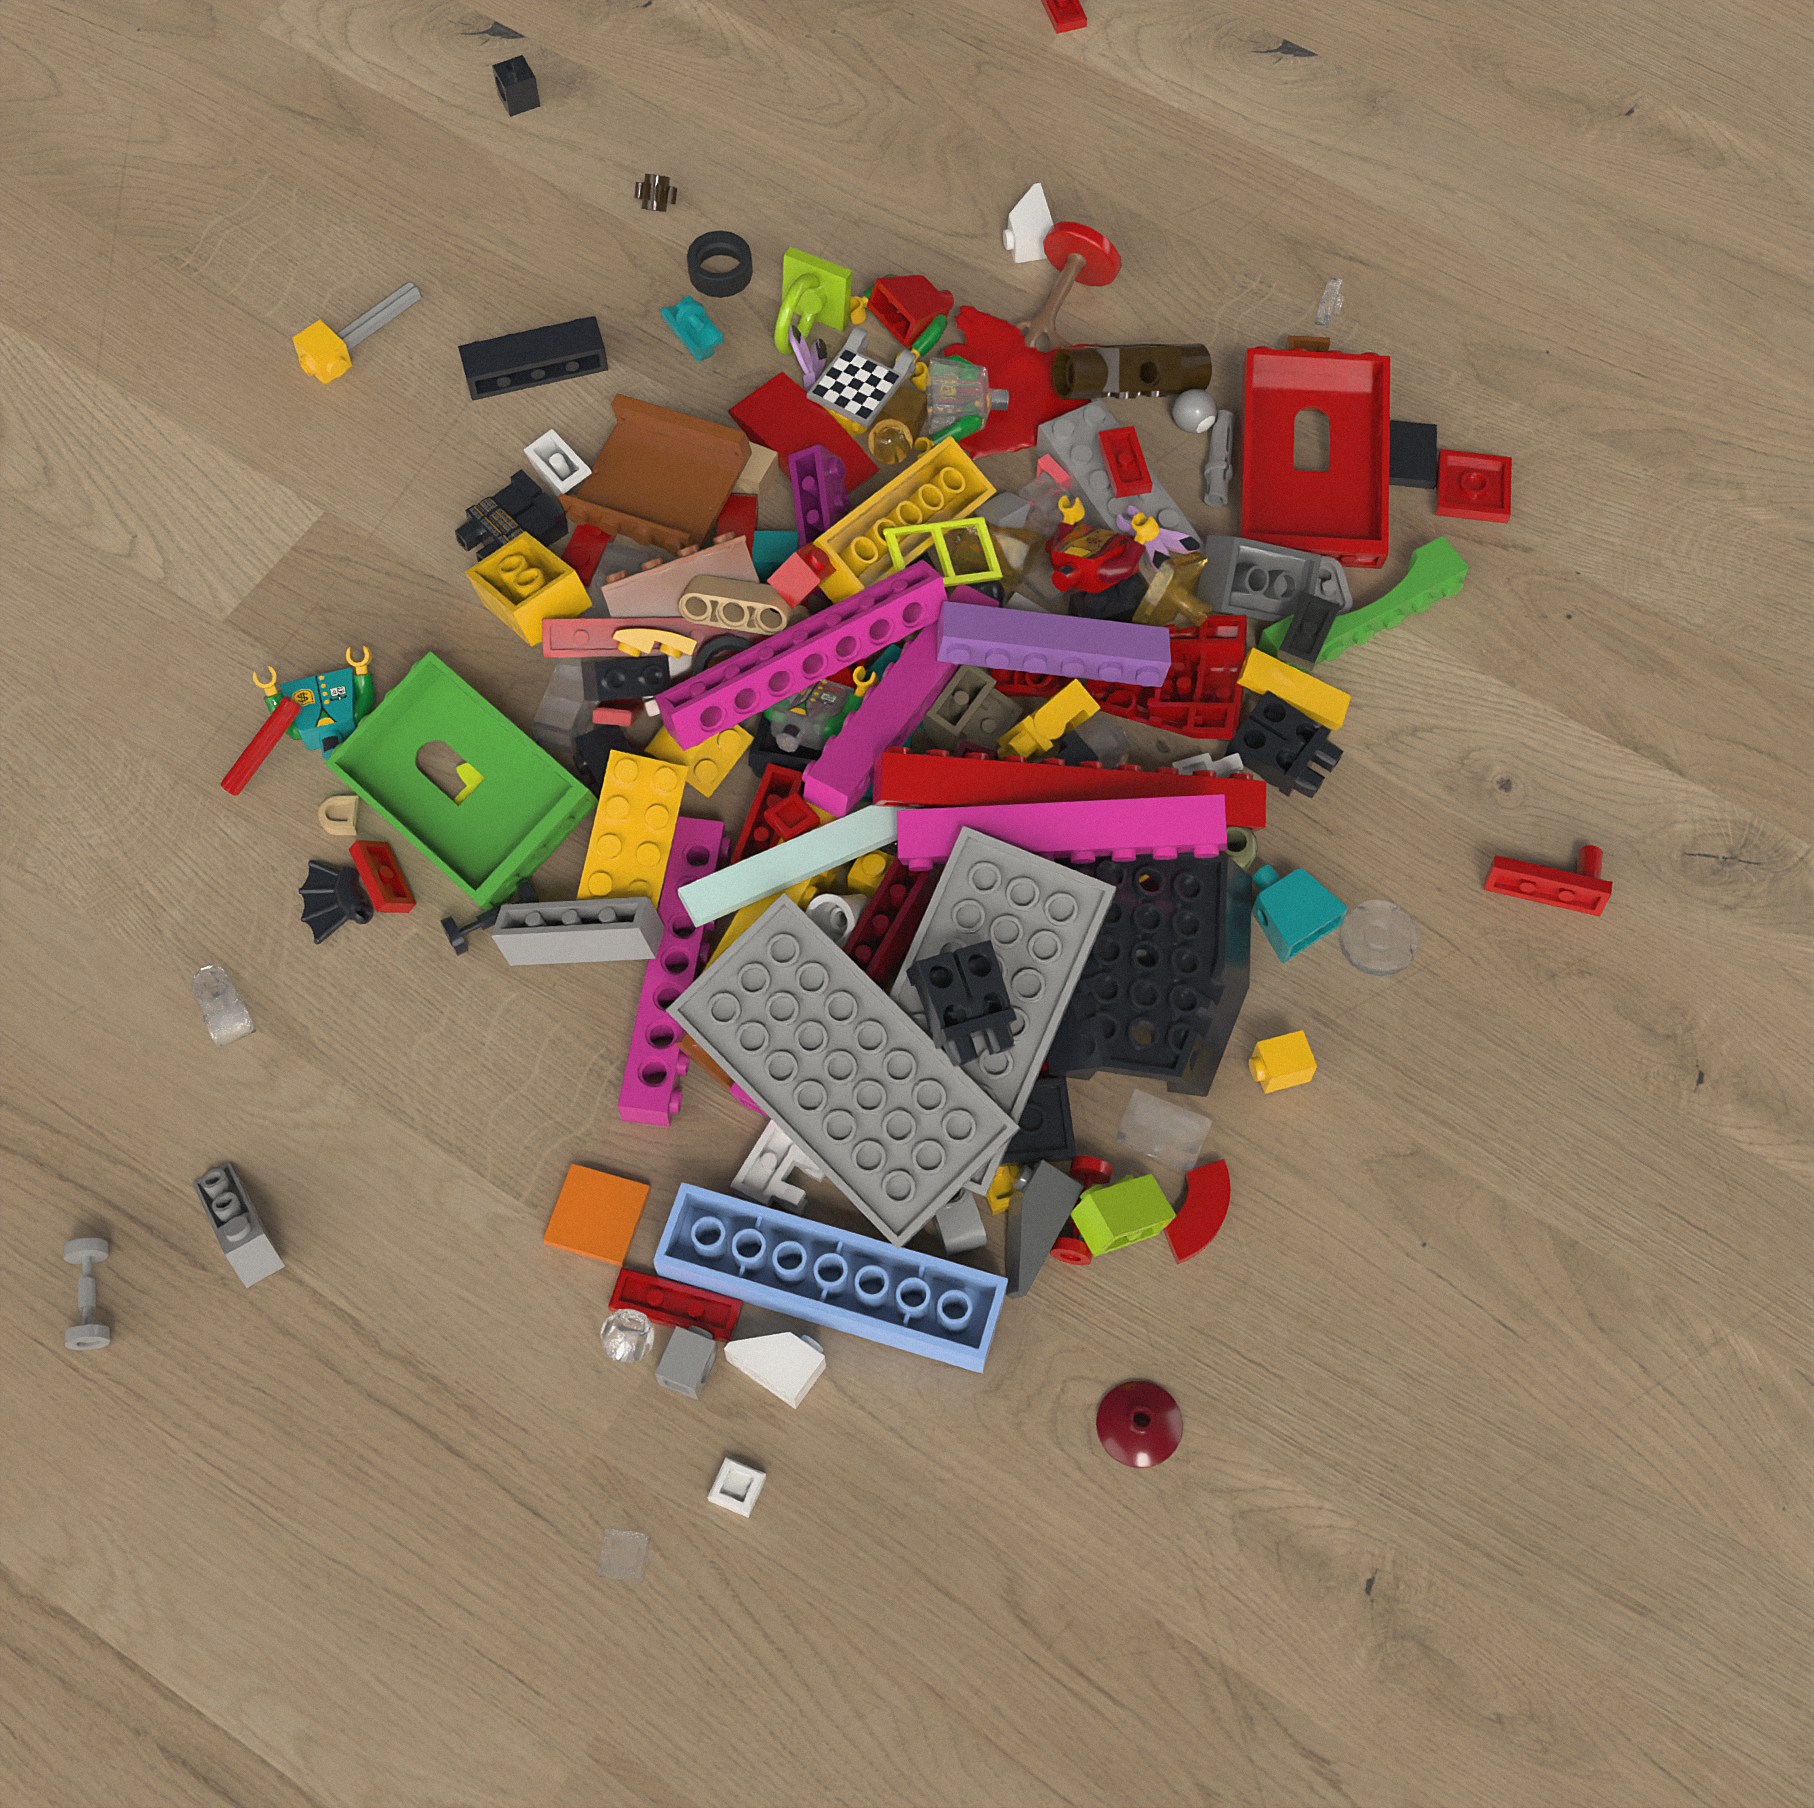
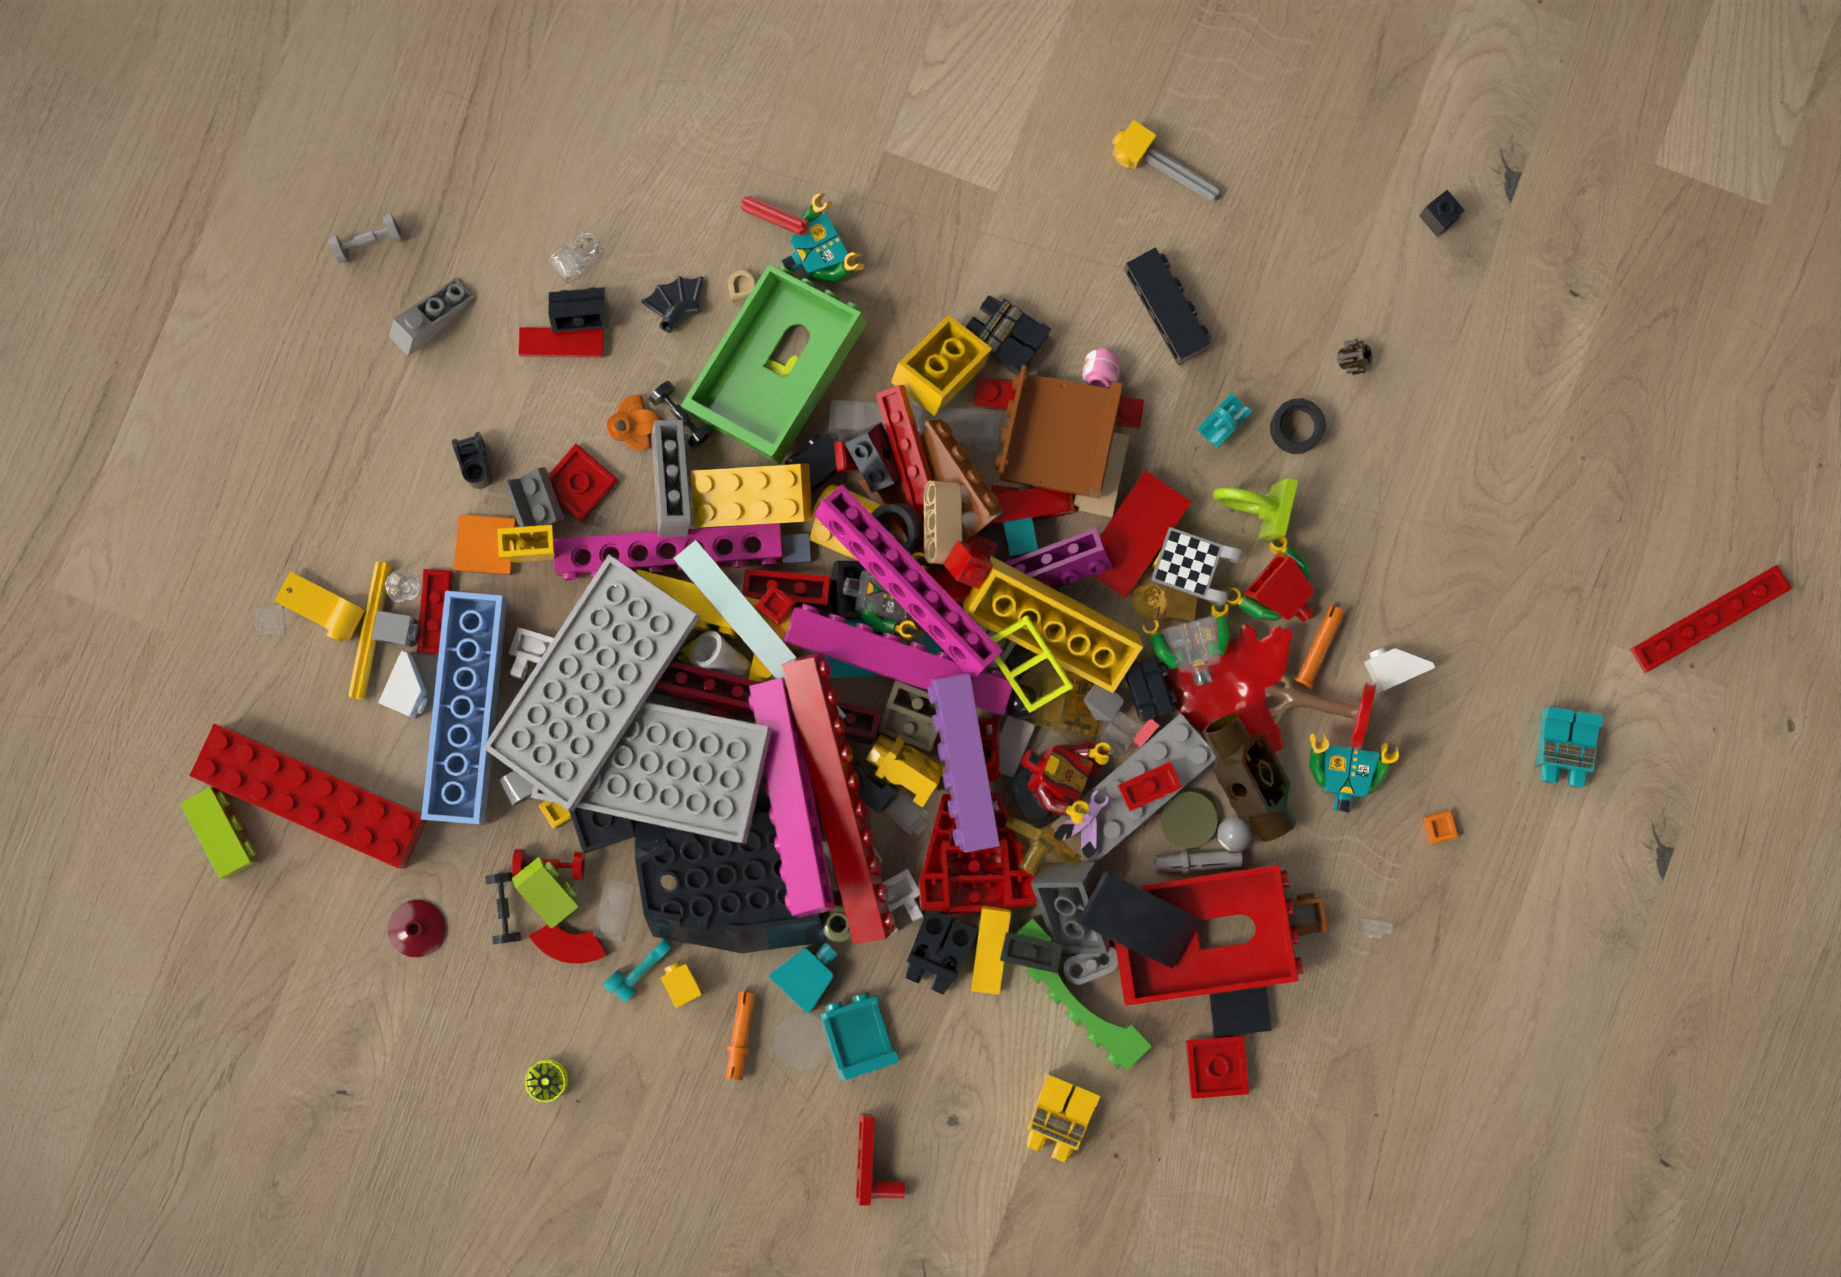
camera: 80 degrees right, 20 degrees up
(301, 1015) = (578, 310): none -> black brick
(337, 1056) = (545, 343): none -> red tile
(382, 876) = (696, 330): red plate -> none
(460, 1203) = (472, 455): none -> black piece
(484, 984) = (637, 420): none -> orange plate
(545, 1072) = (580, 482): none -> red tile
(555, 1127) = (534, 499): none -> dark grey bracket
(556, 463) = (1059, 356): white slope -> none
(587, 434) = (1101, 368): none -> bright pink head
(614, 1133) = (527, 543): none -> yellow torso
(641, 639) = (900, 461): yellow slope -> none
(642, 1449) = (320, 606): none -> yellow door
(679, 1404) = (367, 644): none -> yellow axle
(719, 810) = (796, 548): none -> sand blue tile
(737, 1487) = (325, 680): white tile -> none
(812, 361) = (1213, 521): lavender piece -> none
(908, 1541) = (308, 796): none -> red brick
(937, 1693) = (219, 832): none -> lime brick
(965, 1000) = (631, 762): black hips -> none
(987, 293) = (1319, 647): none -> orange pin
(1004, 462) = (1150, 690): none -> black brick
(1036, 1217) = (539, 835): dark grey slope -> none
(1134, 1285) = (503, 908): none -> black wheel
(1141, 289) = (1348, 770): none -> torso
(1153, 96) = (1567, 744): none -> teal hips
(1172, 457) = (1188, 819): none -> olive tile
(1222, 228) = (1440, 827): none -> orange tile
(1269, 1147) = (623, 985): none -> teal brick
(1286, 506) = (1138, 919): none -> black slope
(1362, 1007) = (740, 1036): none -> orange pin
(1387, 863) = (857, 1037): none -> teal panel
(1391, 1275) = (547, 1080): none -> neon yellow wheel
(1515, 657) = (1060, 1126): none -> yellow hips

